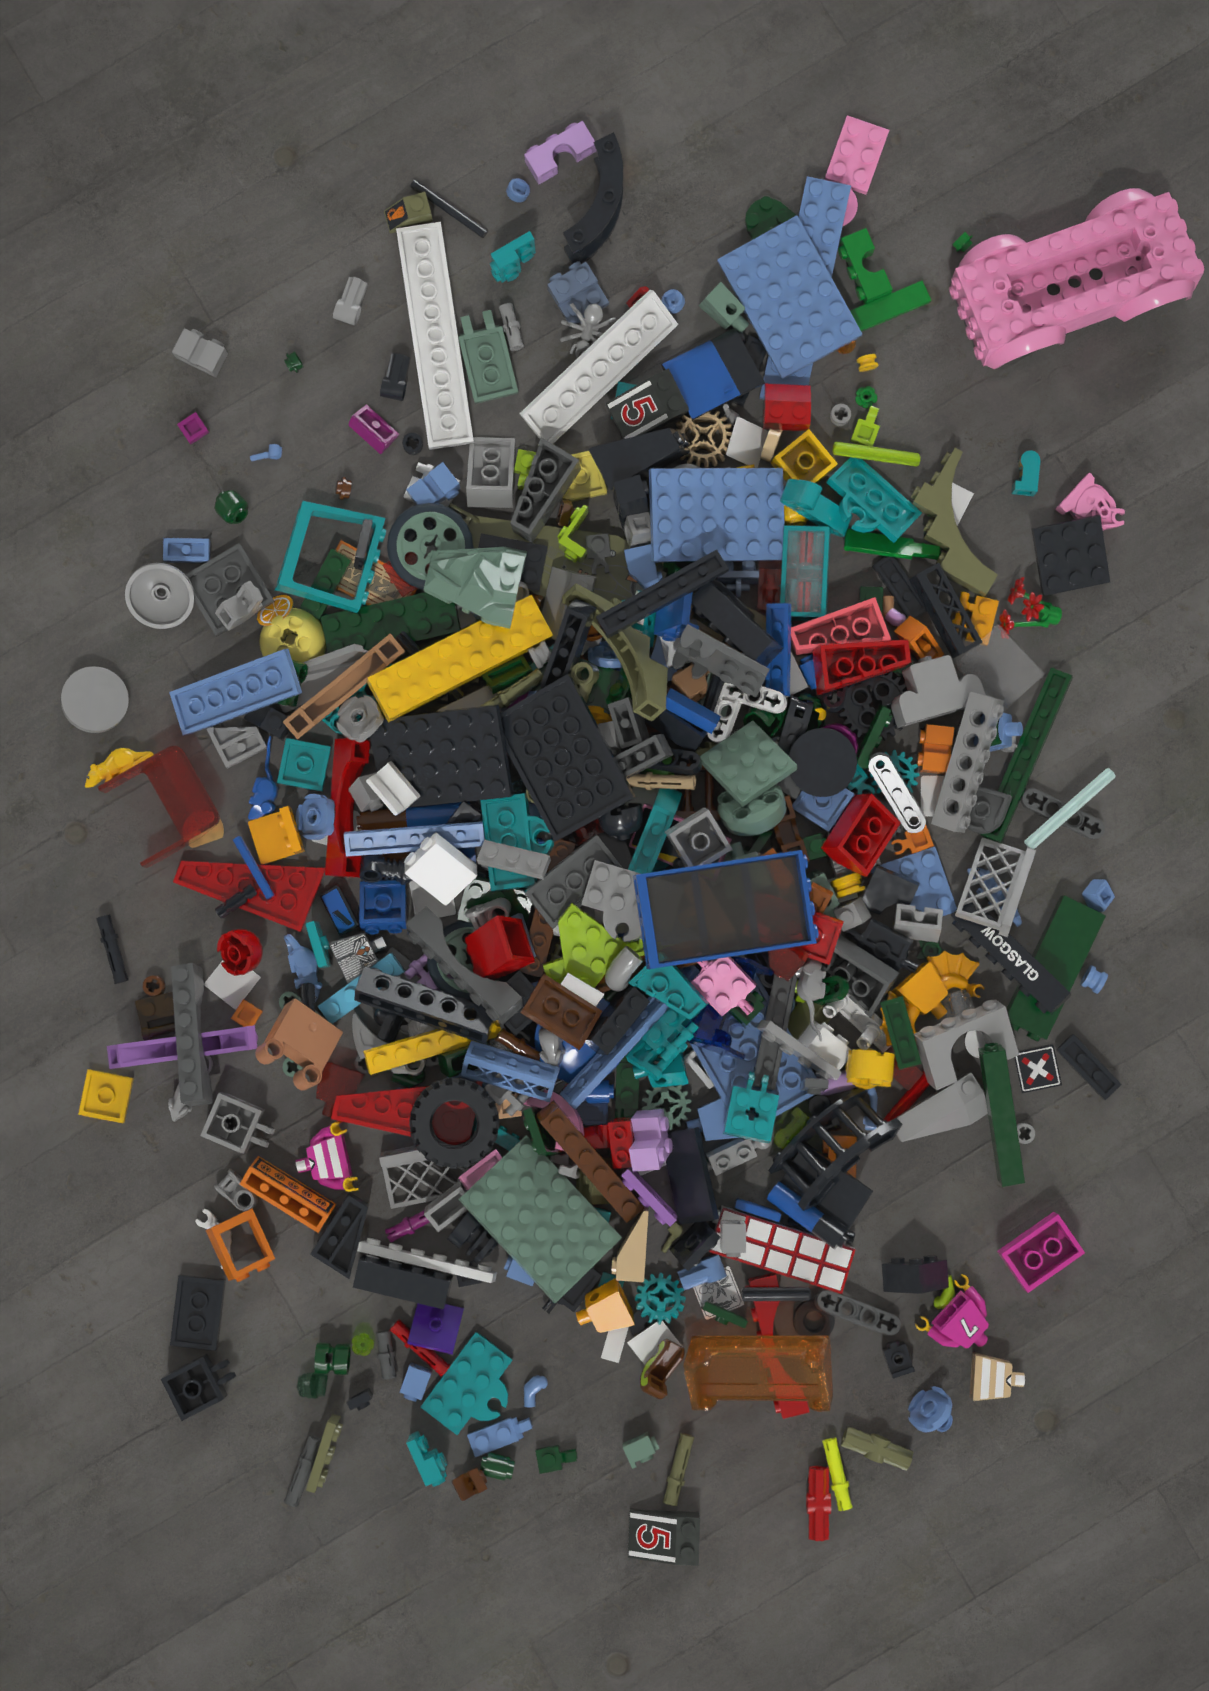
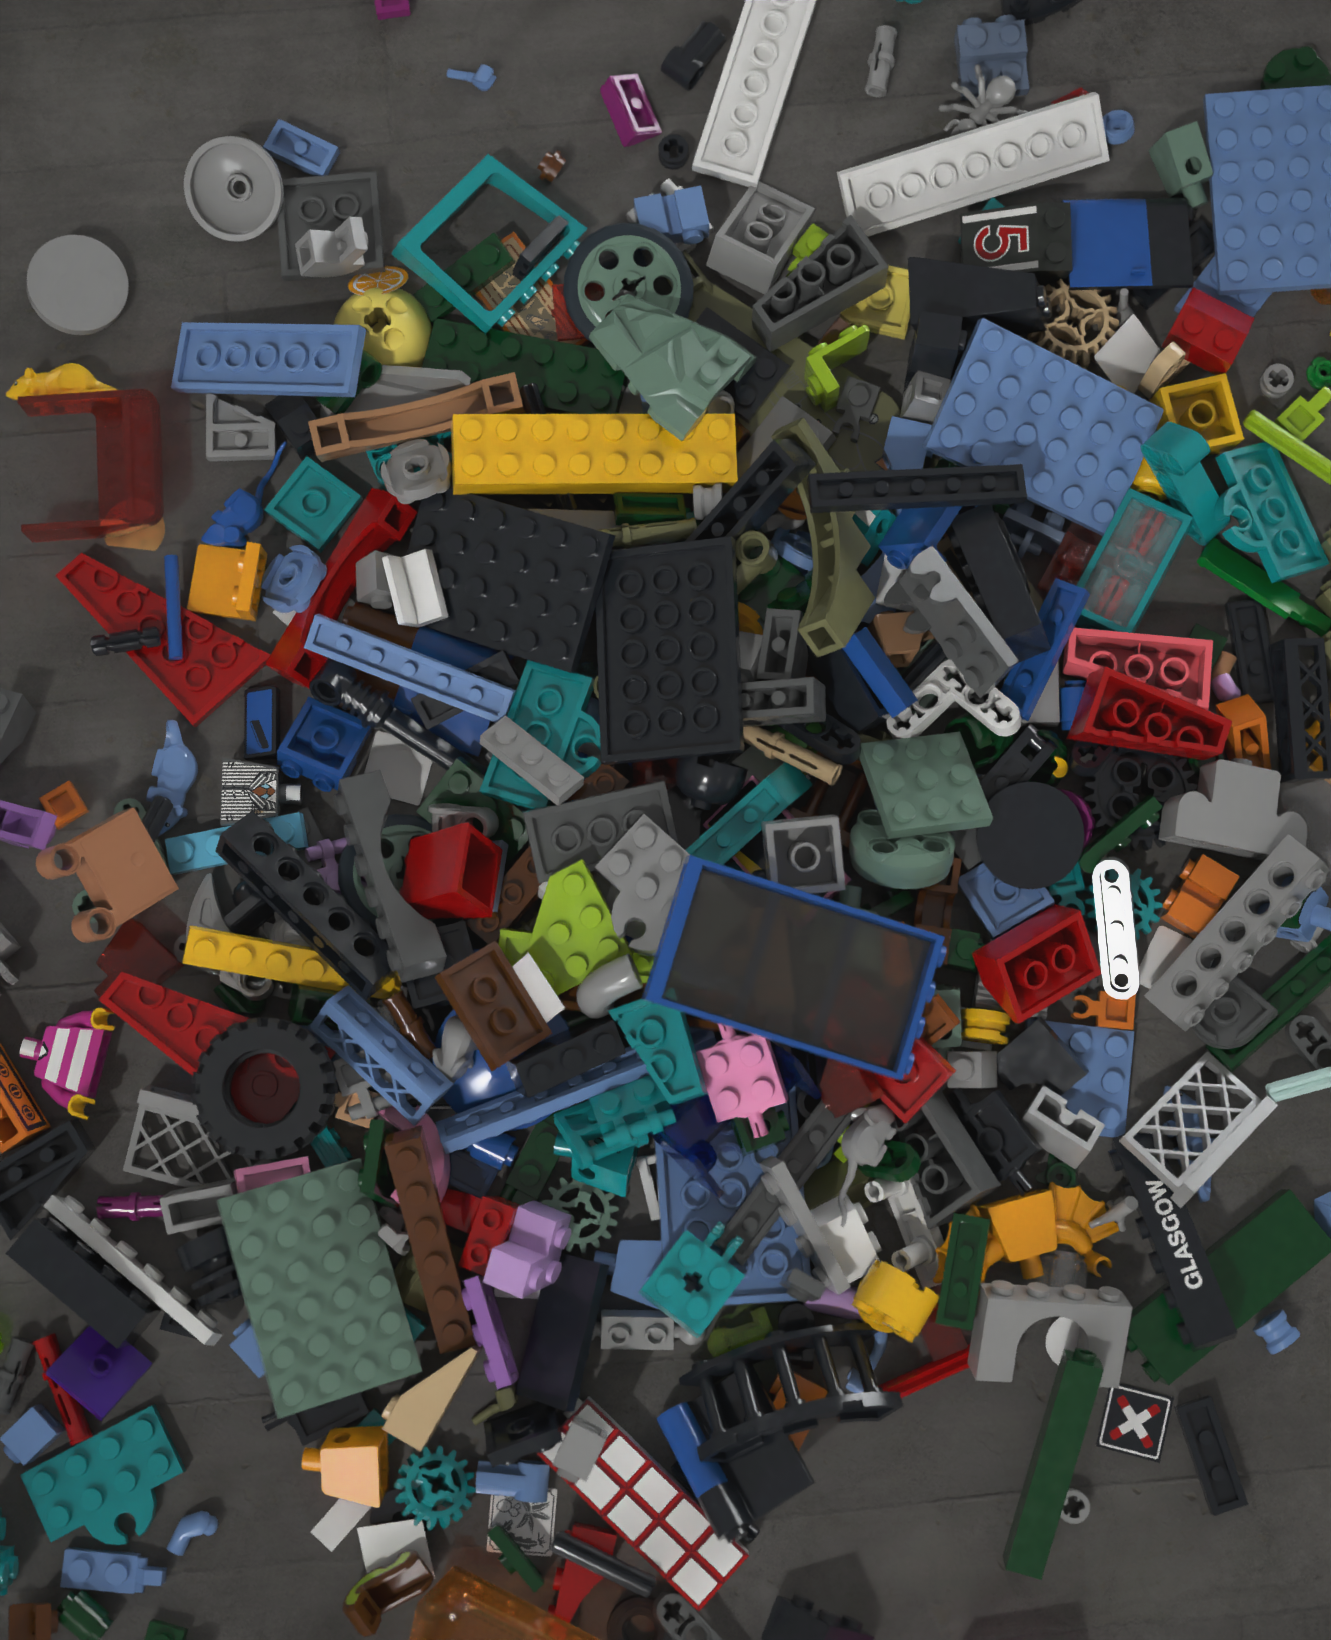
camera: 25 degrees right, 5 degrees down
(229, 987) = (68, 749): white sticker -> none
(231, 507) = (389, 120): dark green head -> none
(240, 951) = (96, 711): red cylinder -> none
(319, 944) = (207, 753): teal plate -> none
(440, 868) = (424, 726): white brick -> none
(487, 360) = (827, 89): sand green tile -> none
(757, 1209) = (636, 1427): blue tile -> none
(944, 1110) = (974, 1415): light grey wedge -> none
(972, 956) = (1116, 1213): none -> light grey bar

